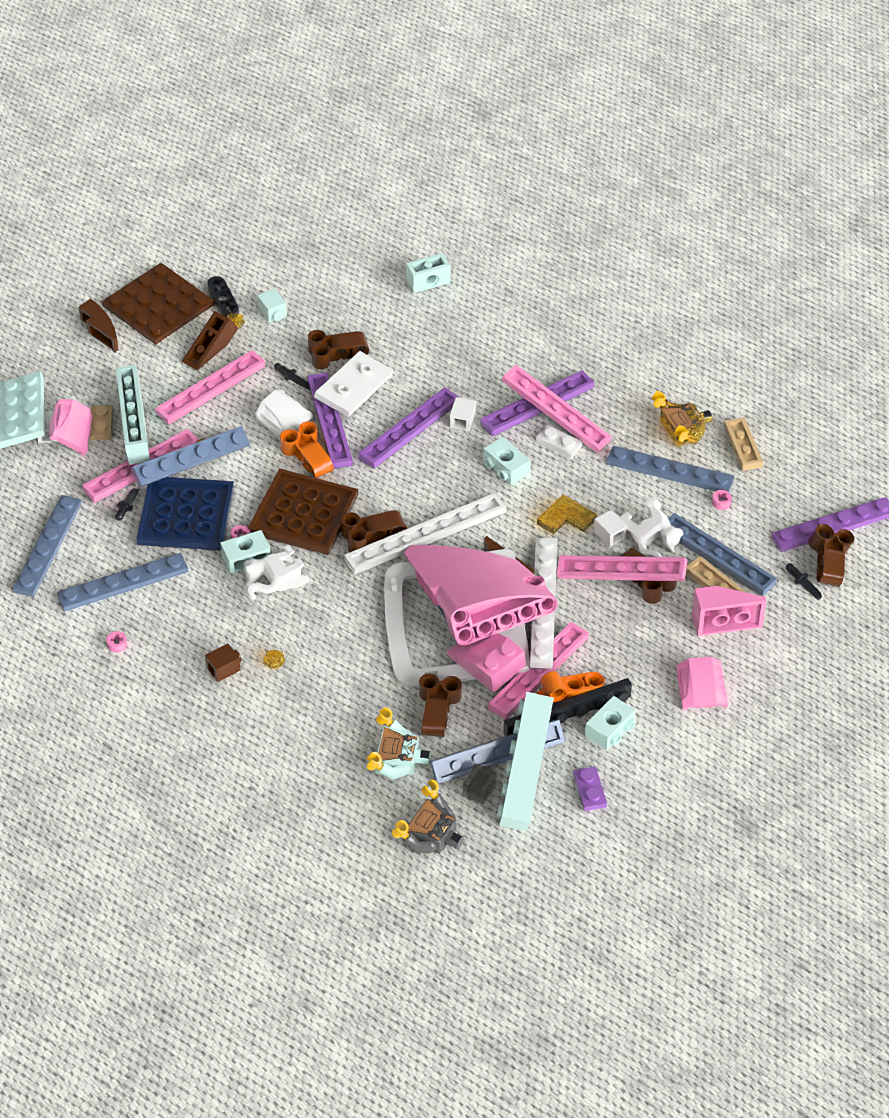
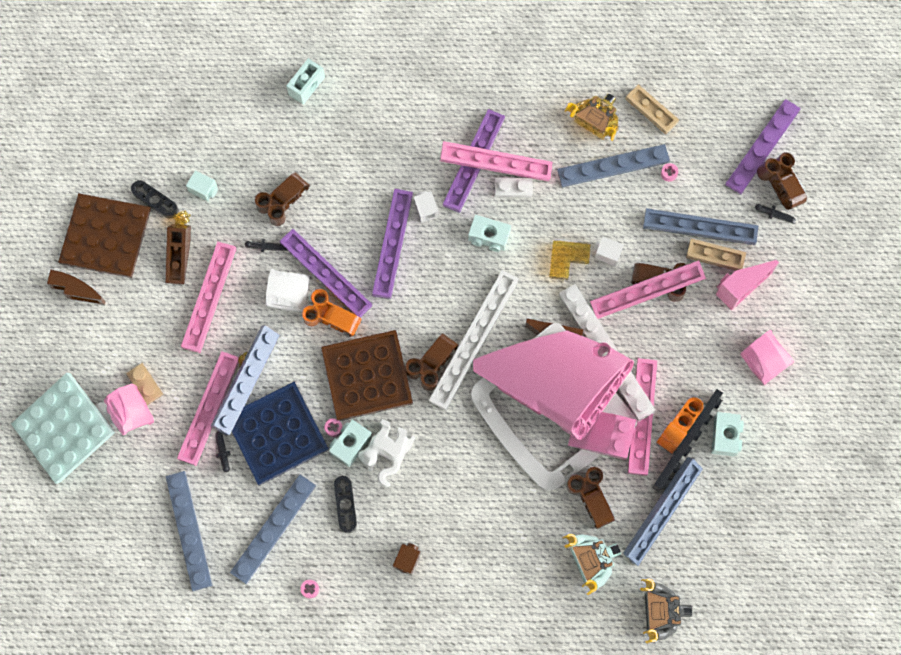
camera: 30 degrees left, 25 degrees up
(132, 415) = (171, 368): light aqua brick -> none
(202, 588) = (338, 490): none -> black beam
(274, 663) = (441, 534): clear yellow plate -> none
(353, 384) = (321, 227): white plate -> none
(479, 783) = (670, 548): clear smoke brick -> none
(526, 761) = (696, 513): light aqua brick -> none
(590, 788) = (747, 500): medium lavender plate -> none
(651, 528) = (641, 234): white animal -> none

